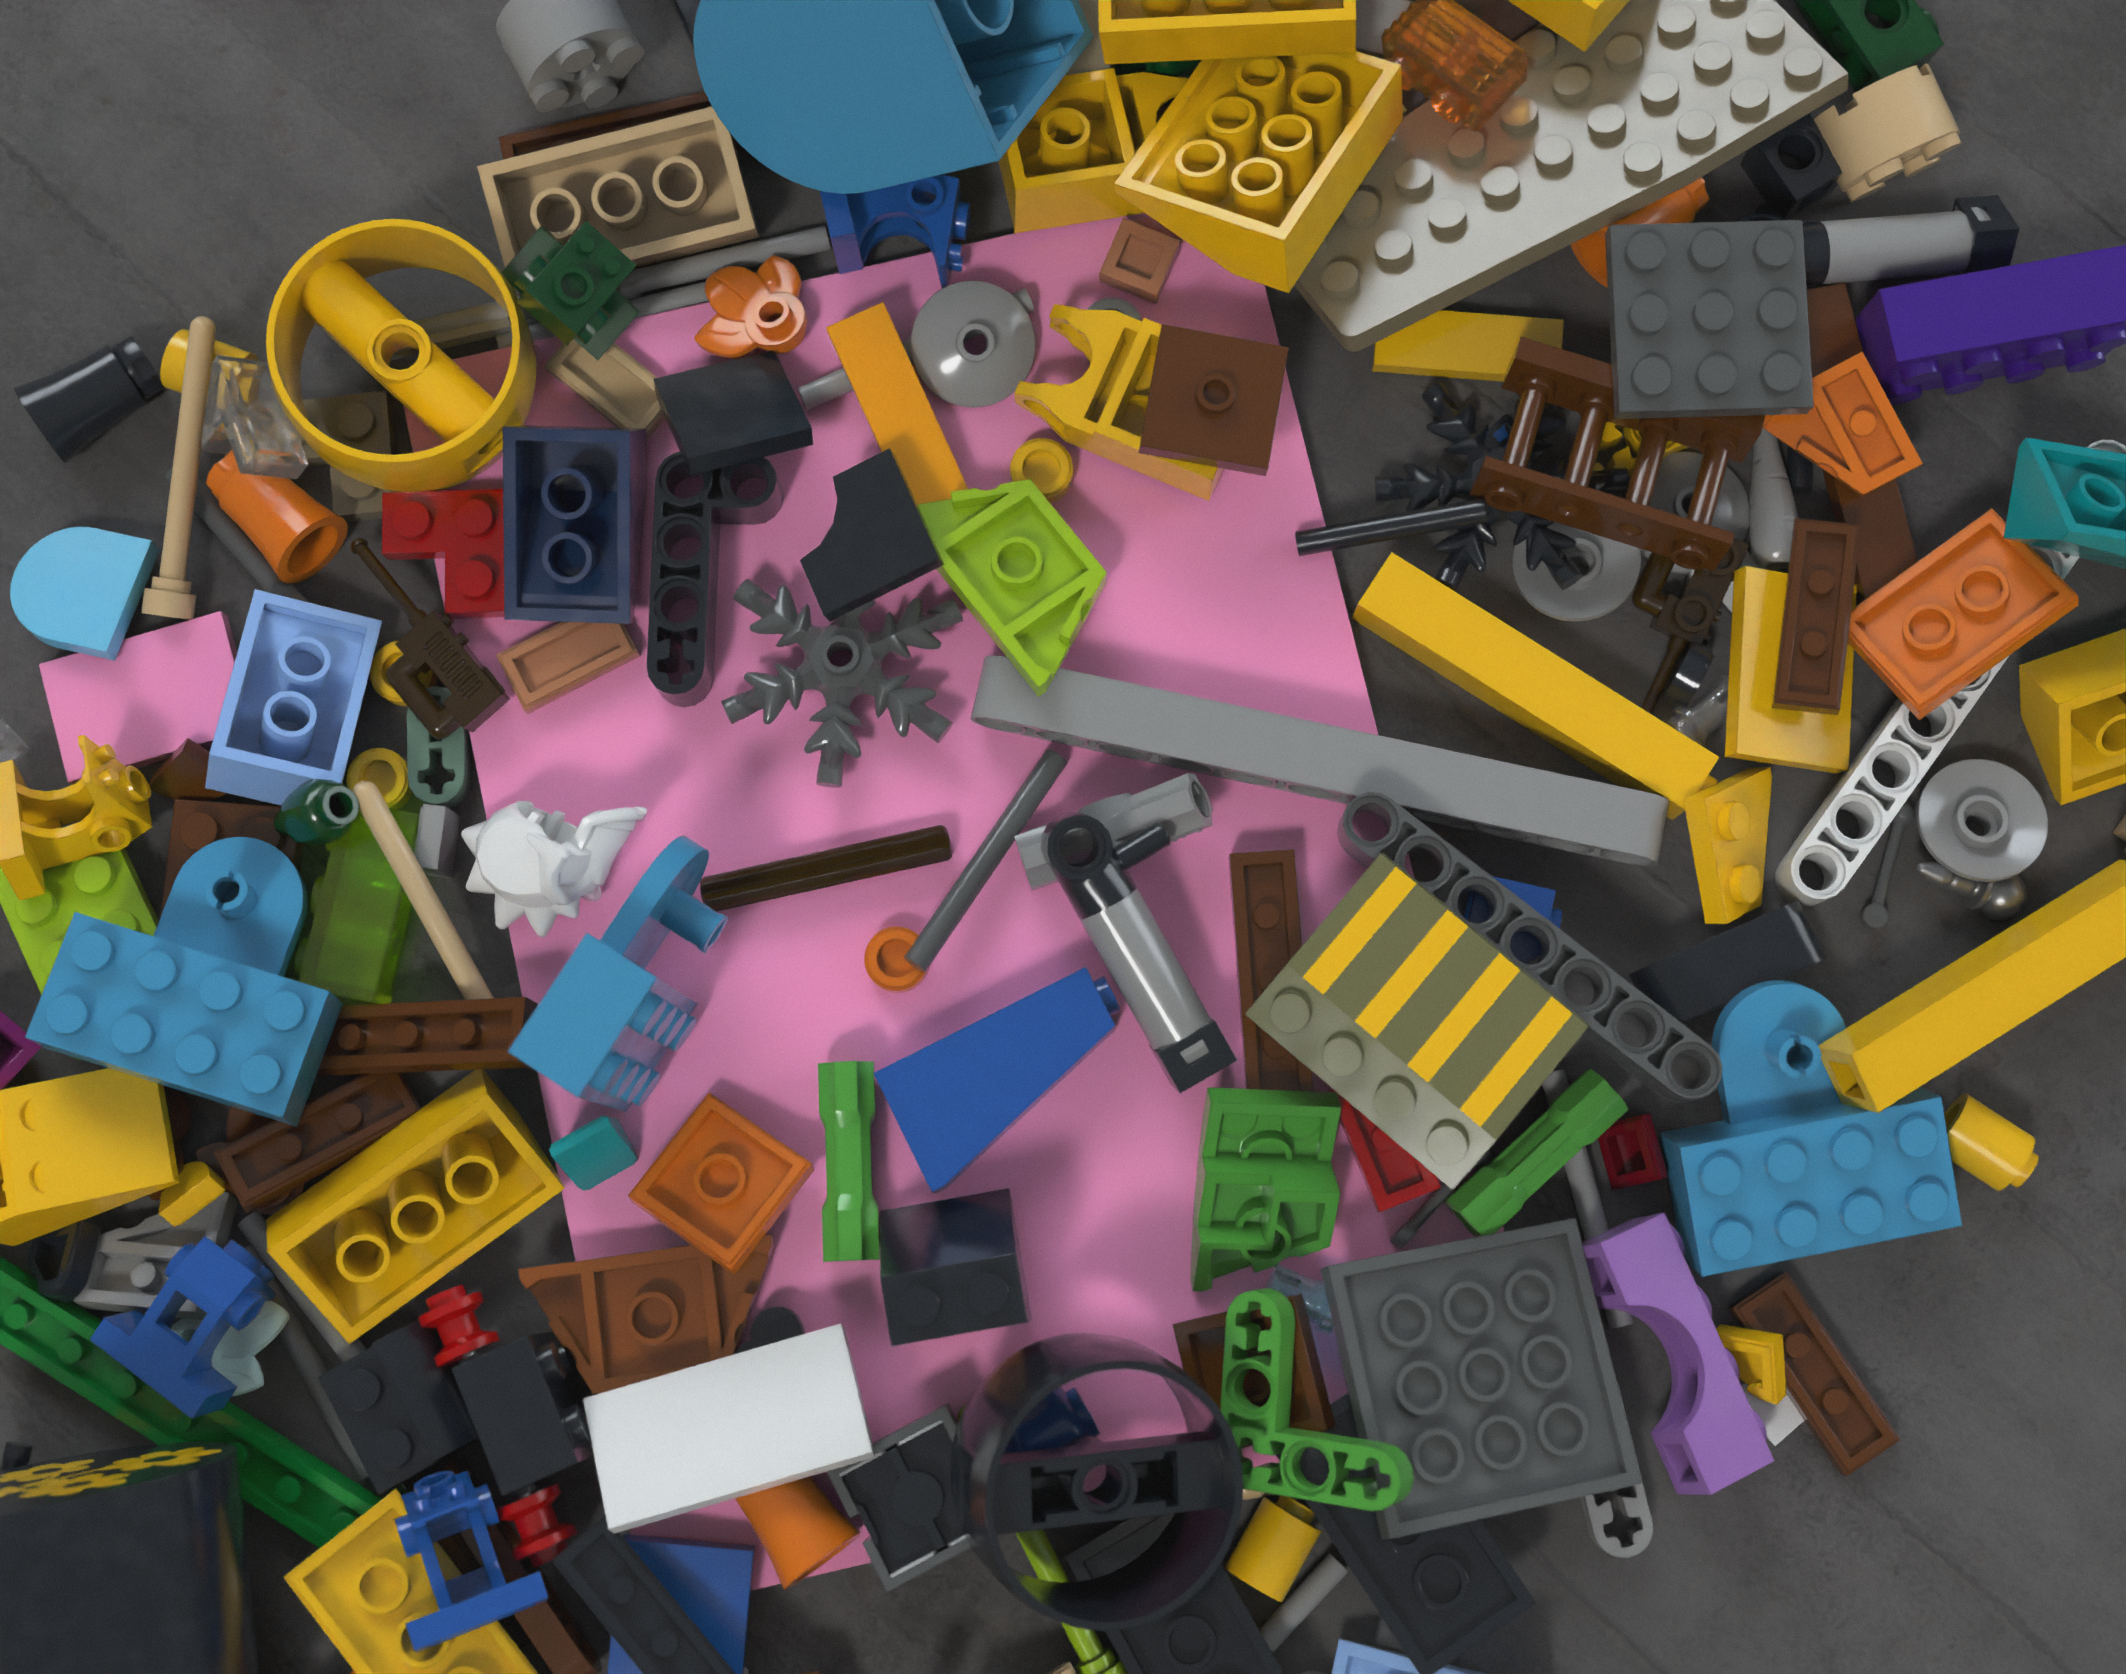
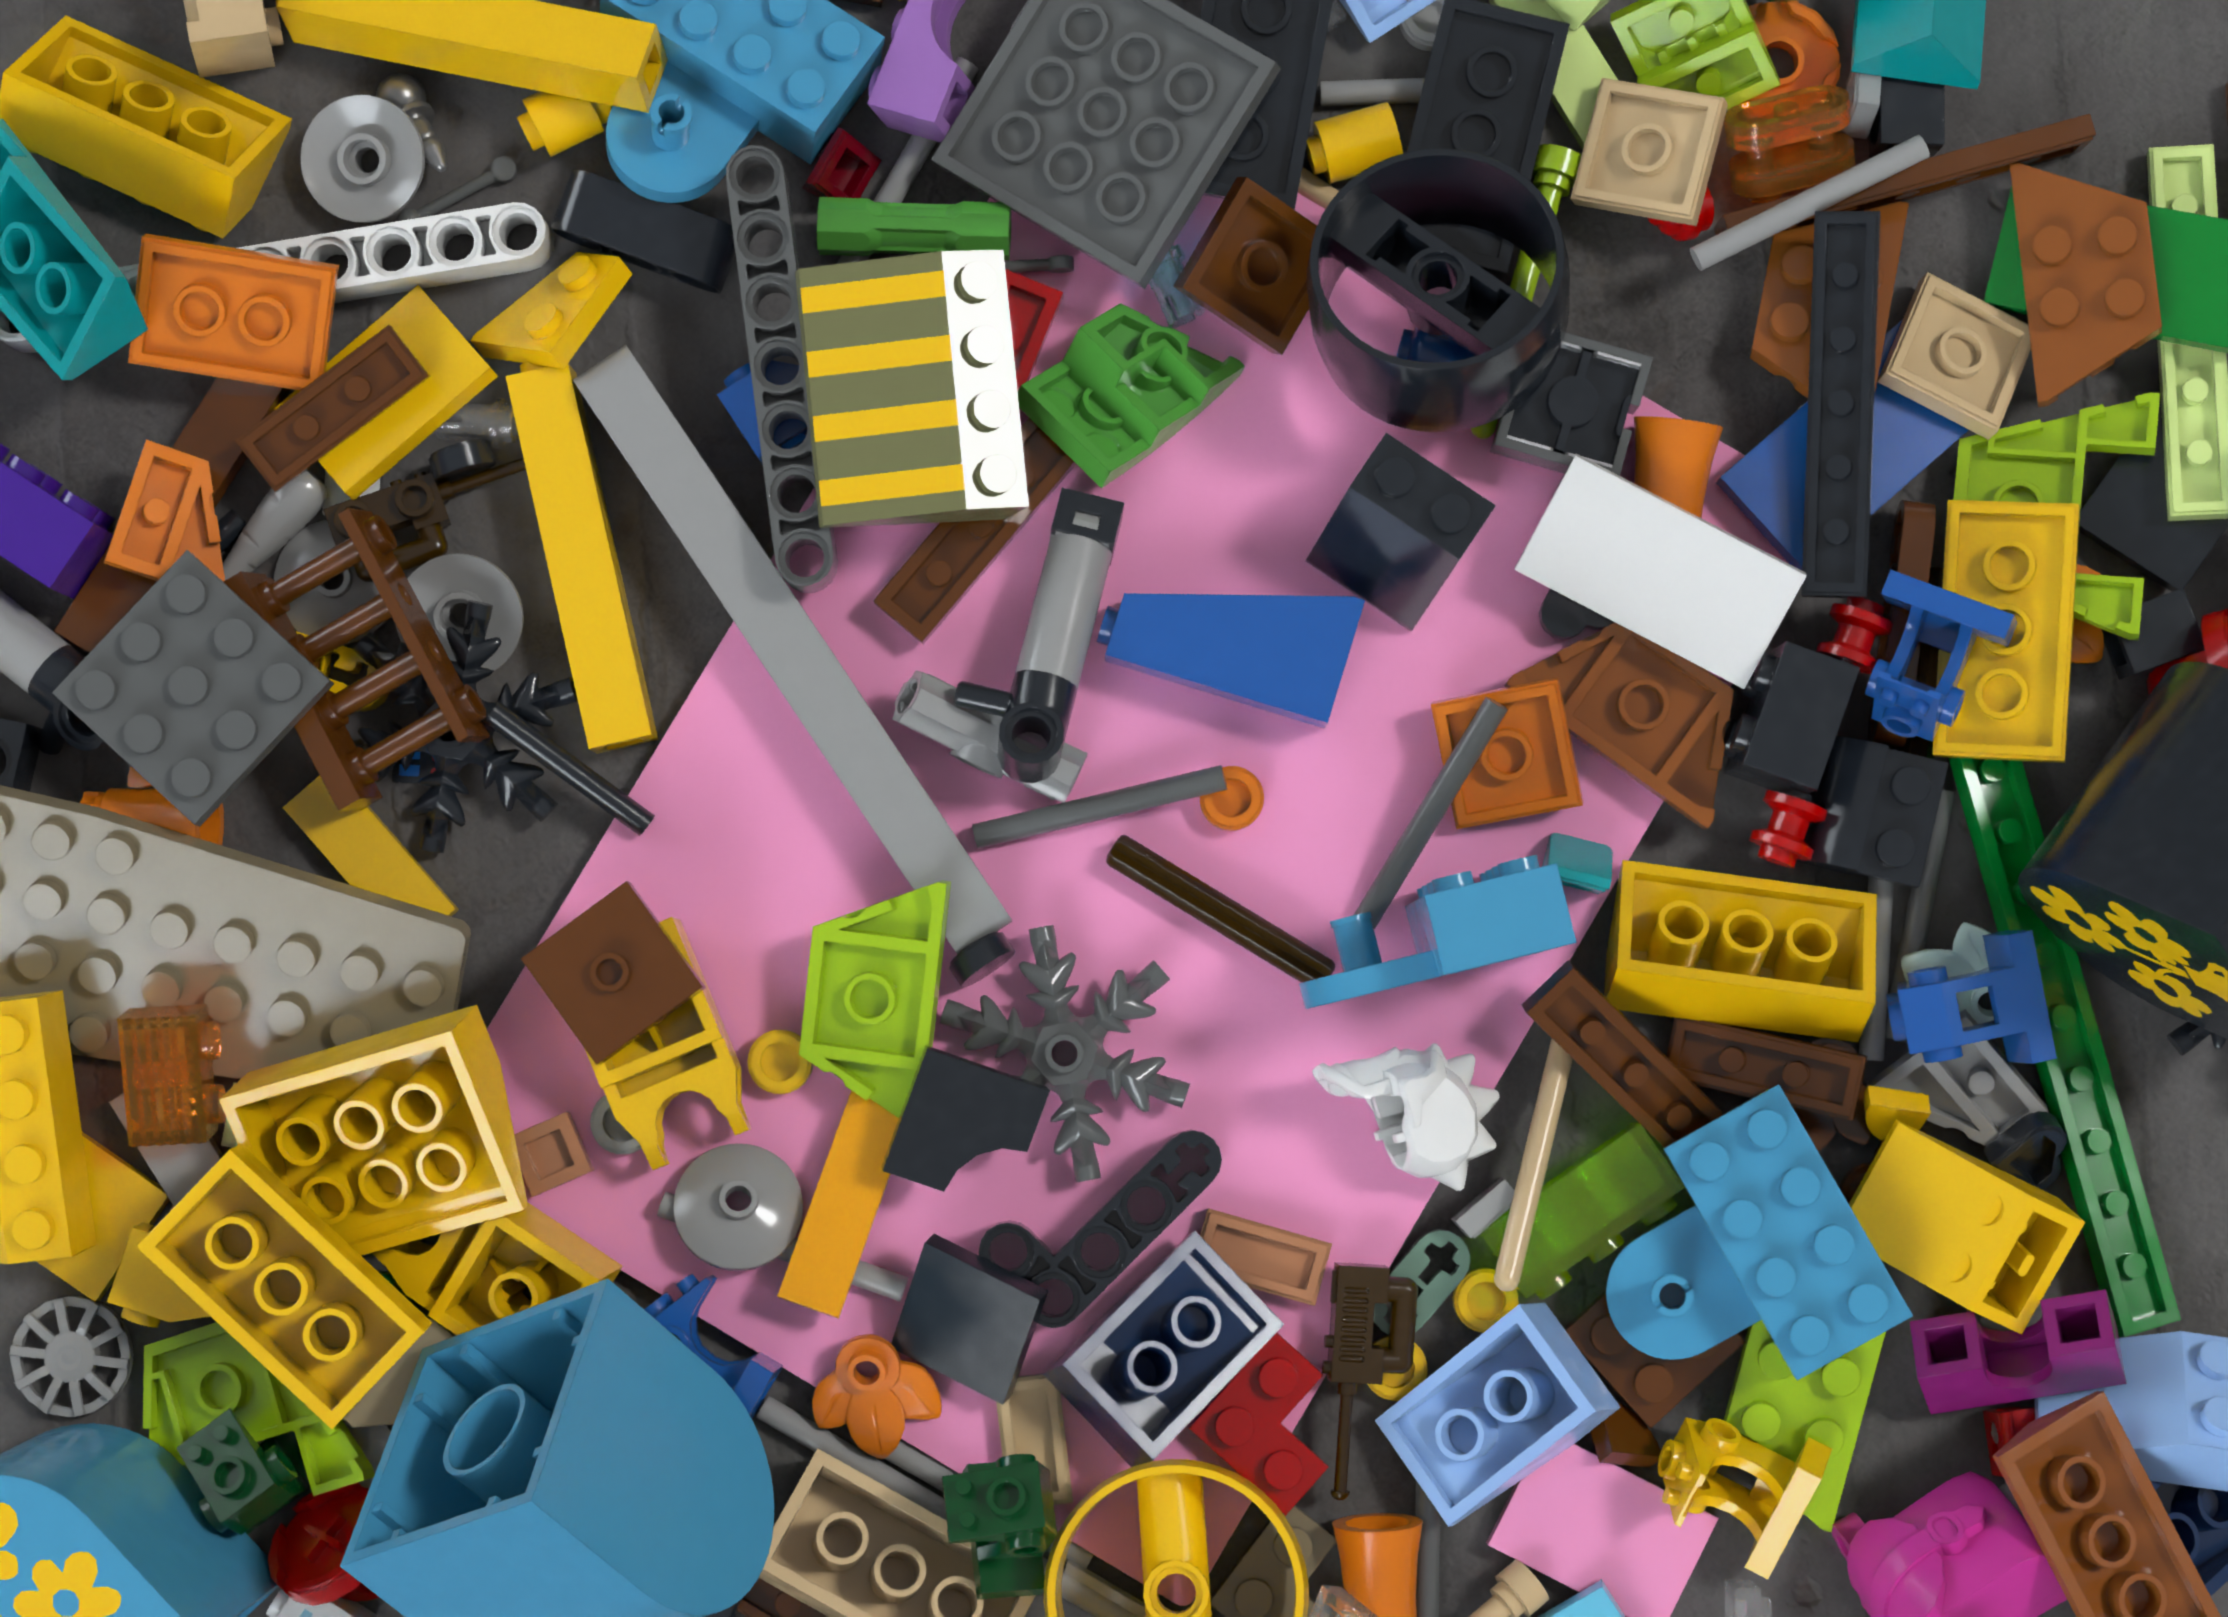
camera: 140 degrees left, 5 degrees up
(317, 812) = (1554, 1301): dark green plant -> none
(737, 1085) = (1432, 809): none -> dark grey bar
(850, 1207) = (1432, 649): bright green axle -> none
(967, 671) = (981, 958): none -> black tile
(1269, 1427) = (1282, 217): bright green beam -> none
(1872, 982) = (560, 121): none -> yellow brick

